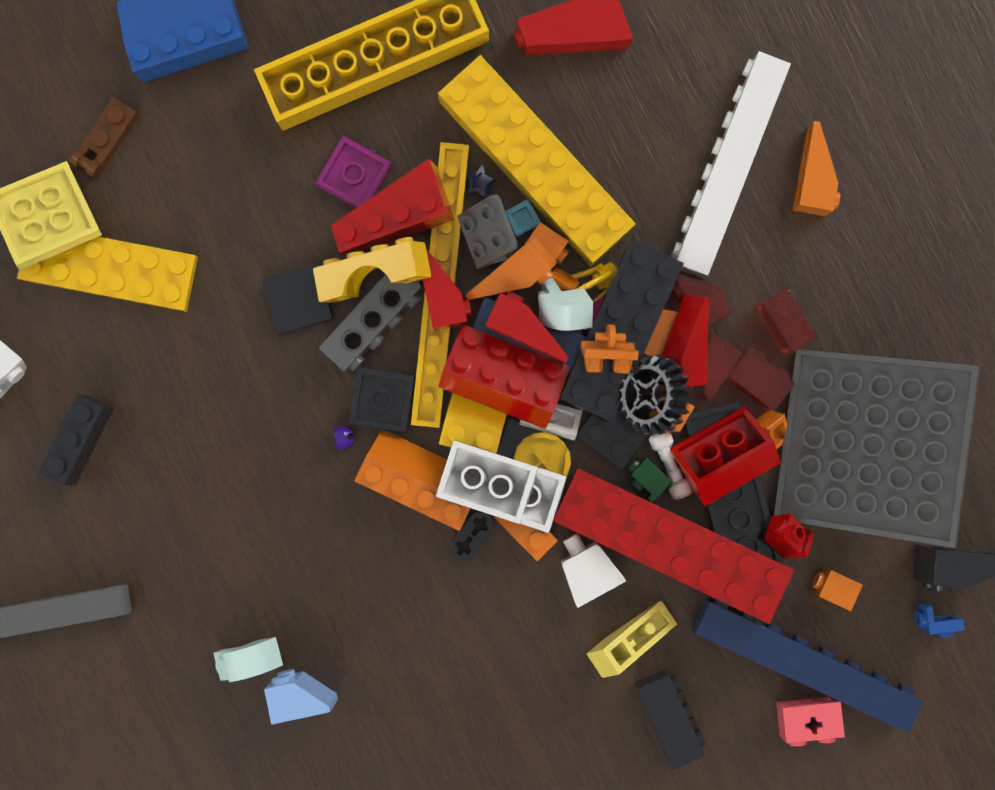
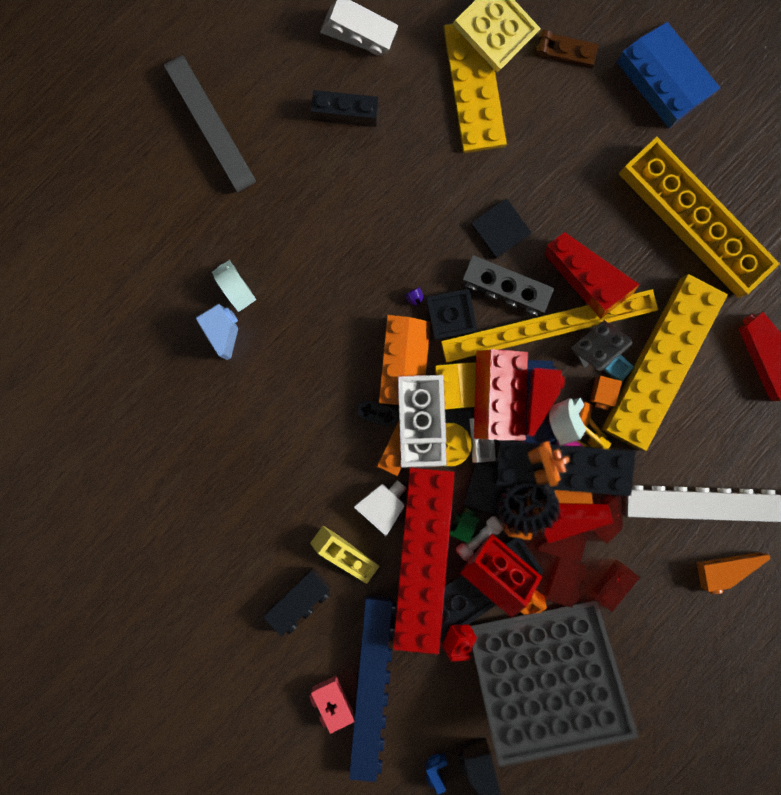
camera: 70 degrees right, 0 degrees up
(353, 173) = (607, 234): magenta tile -> none
(401, 263) = (528, 254): yellow arch -> none
(444, 299) = (543, 330): red slope -> none
(480, 181) = (634, 328): dark blue piece -> none
(519, 271) = (582, 379): orange slope -> none
(836, 588) = (434, 690): orange brick -> none

